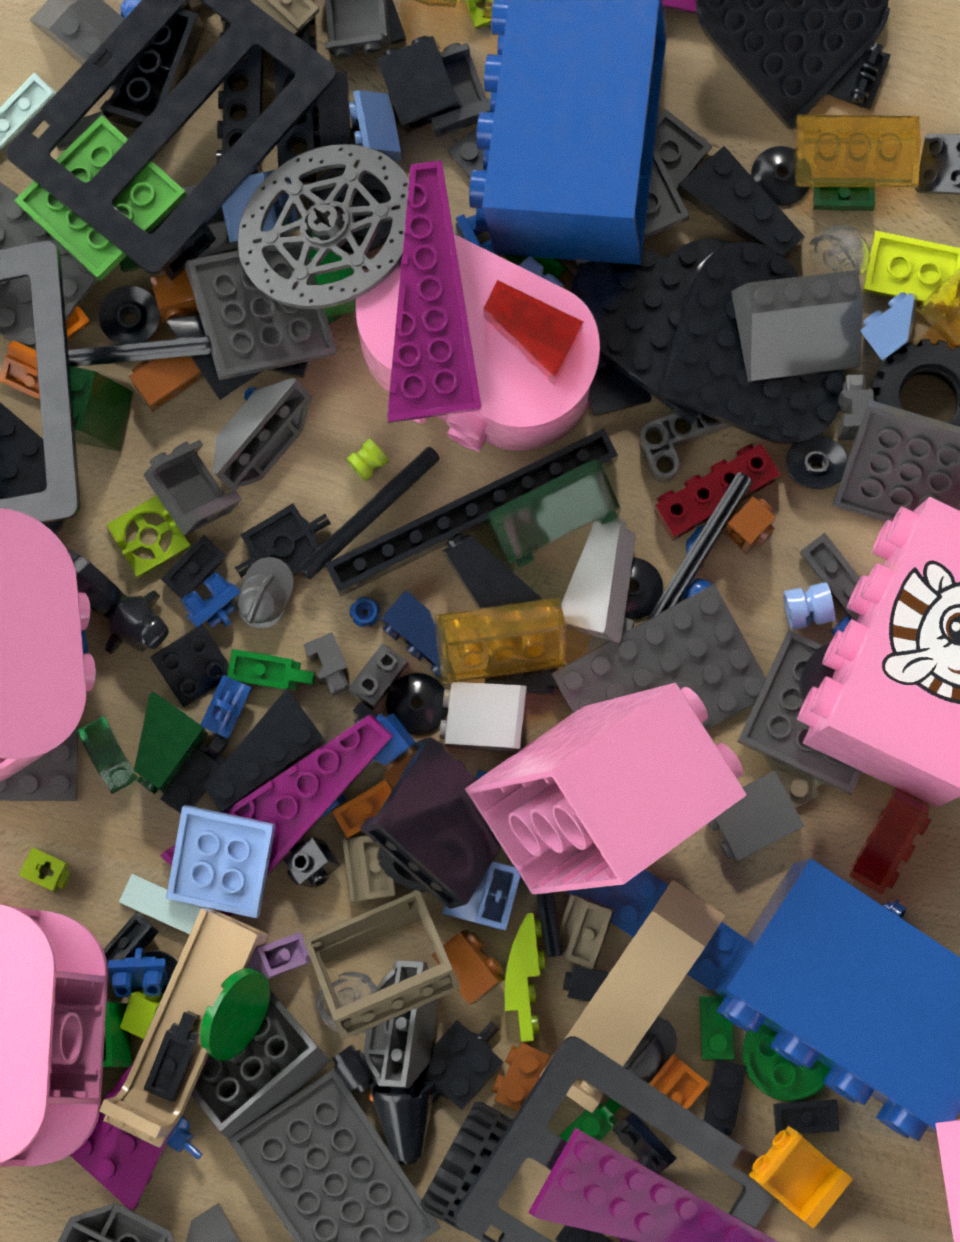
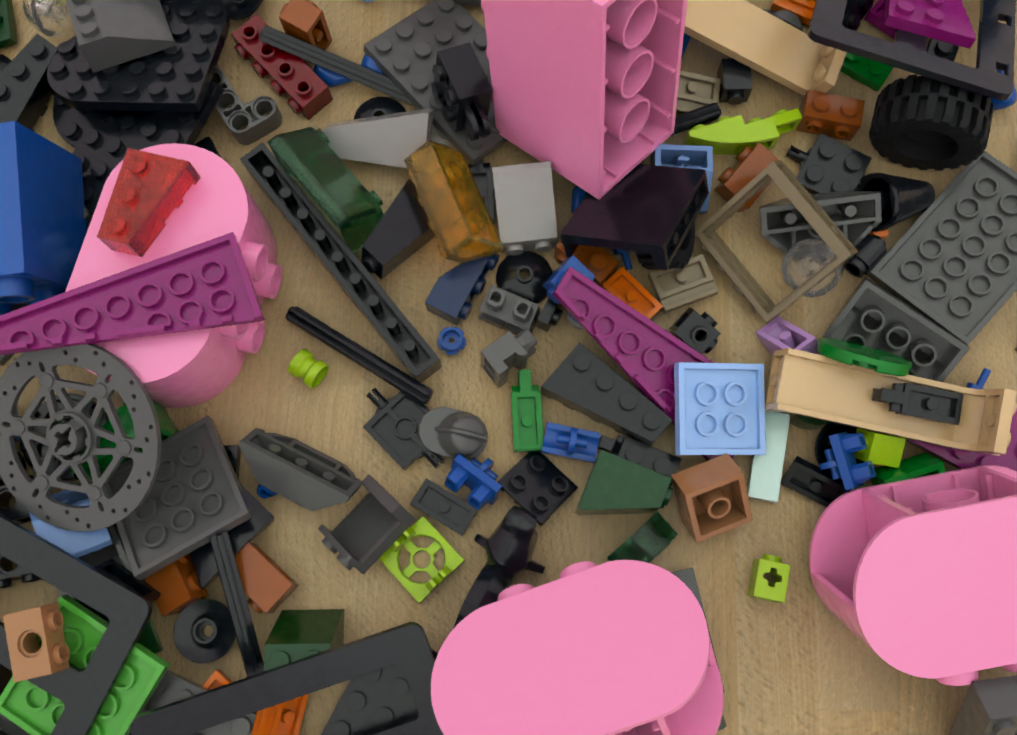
camera: 100 degrees left, 5 degrees down
(131, 159) = (26, 655): none -> medium nougat brick
(135, 830) = (712, 497): none -> medium nougat brick
(617, 674) = (462, 90): none -> black brick

